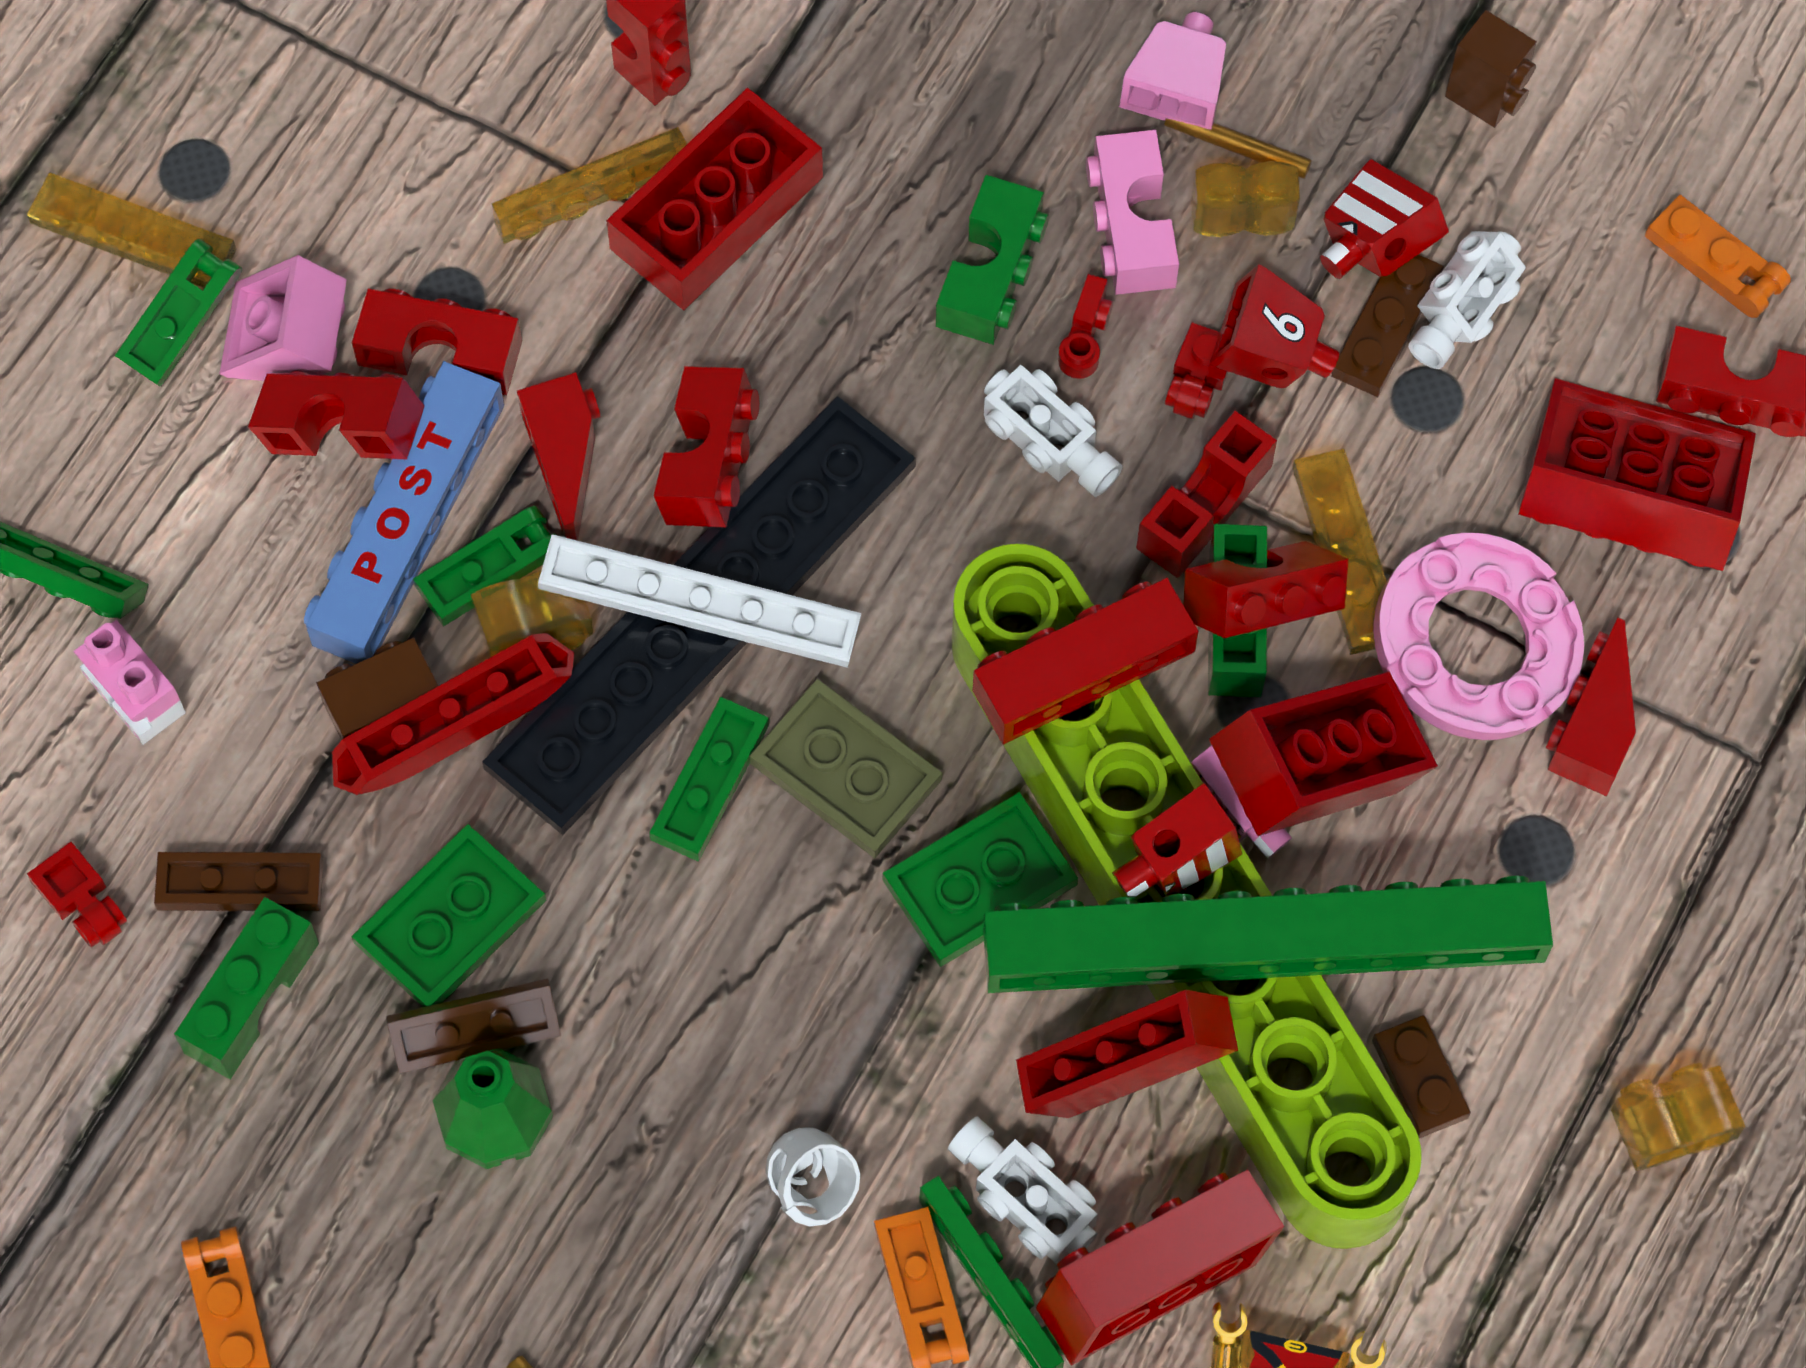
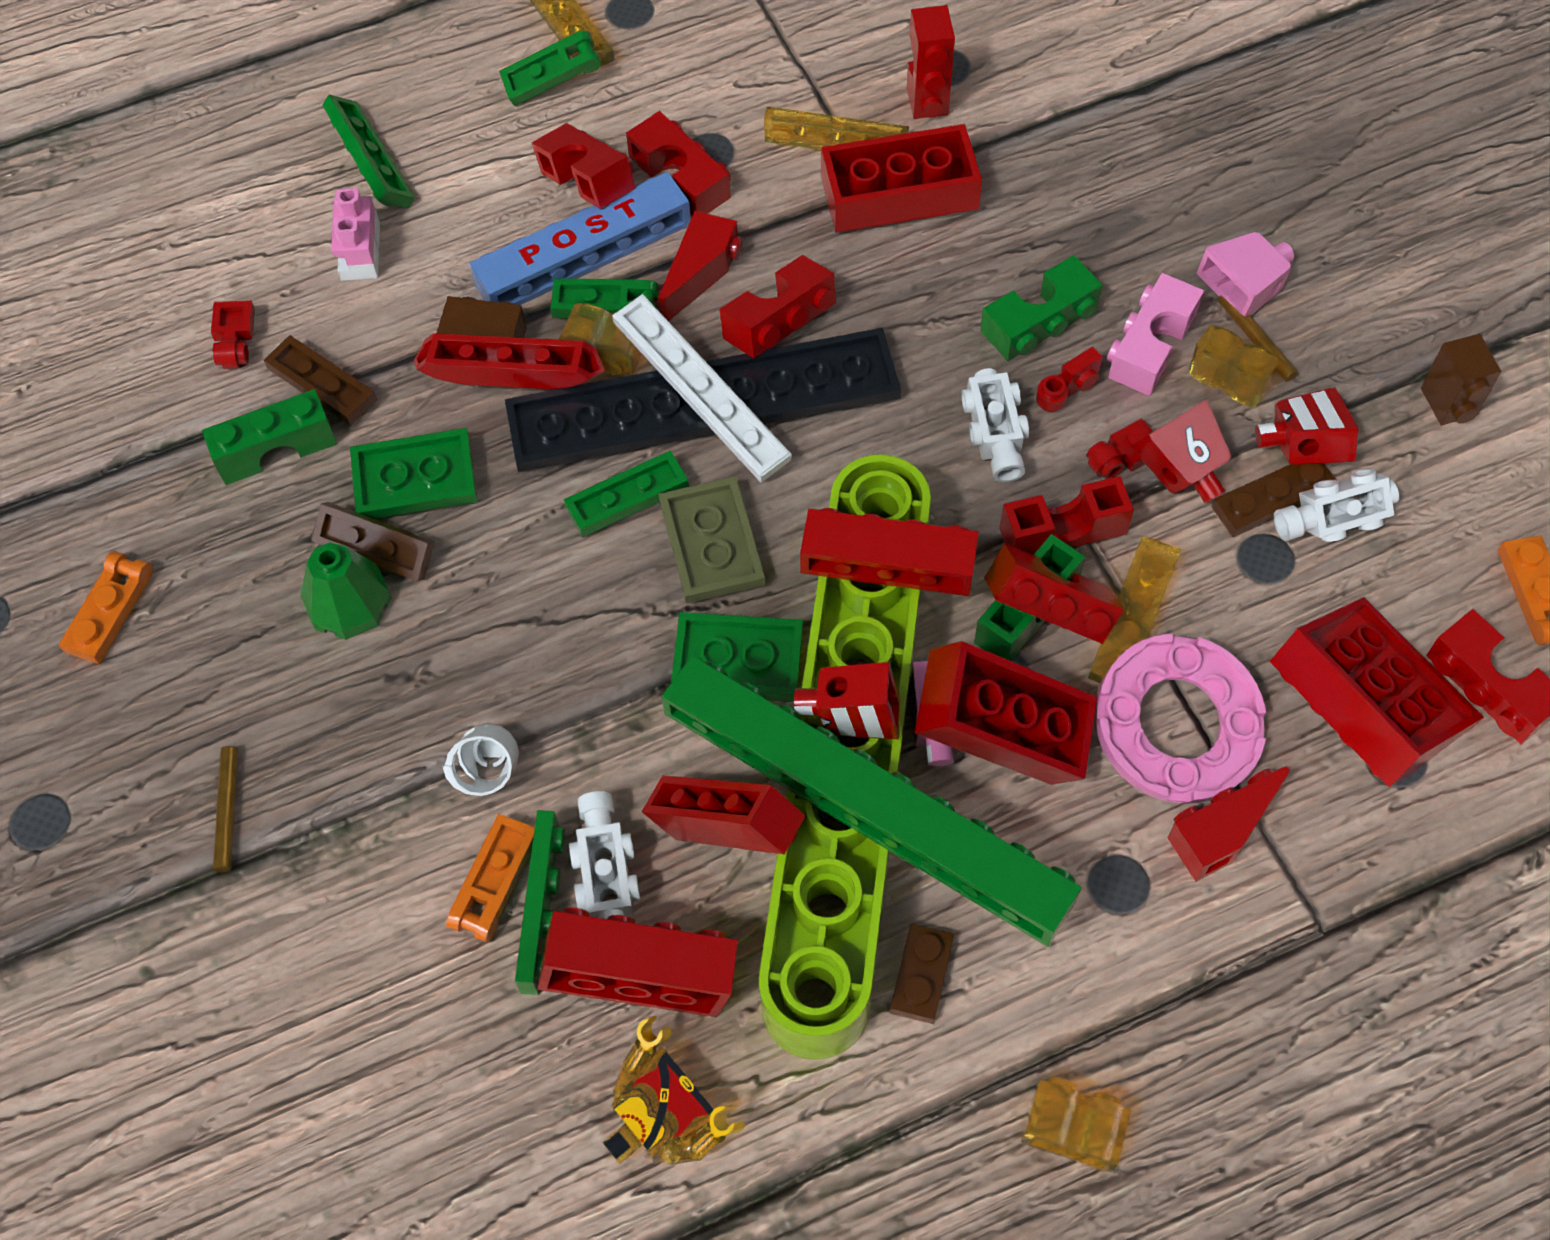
camera: 40 degrees right, 5 degrees down
(284, 321) = (607, 106): bright pink slope -> none

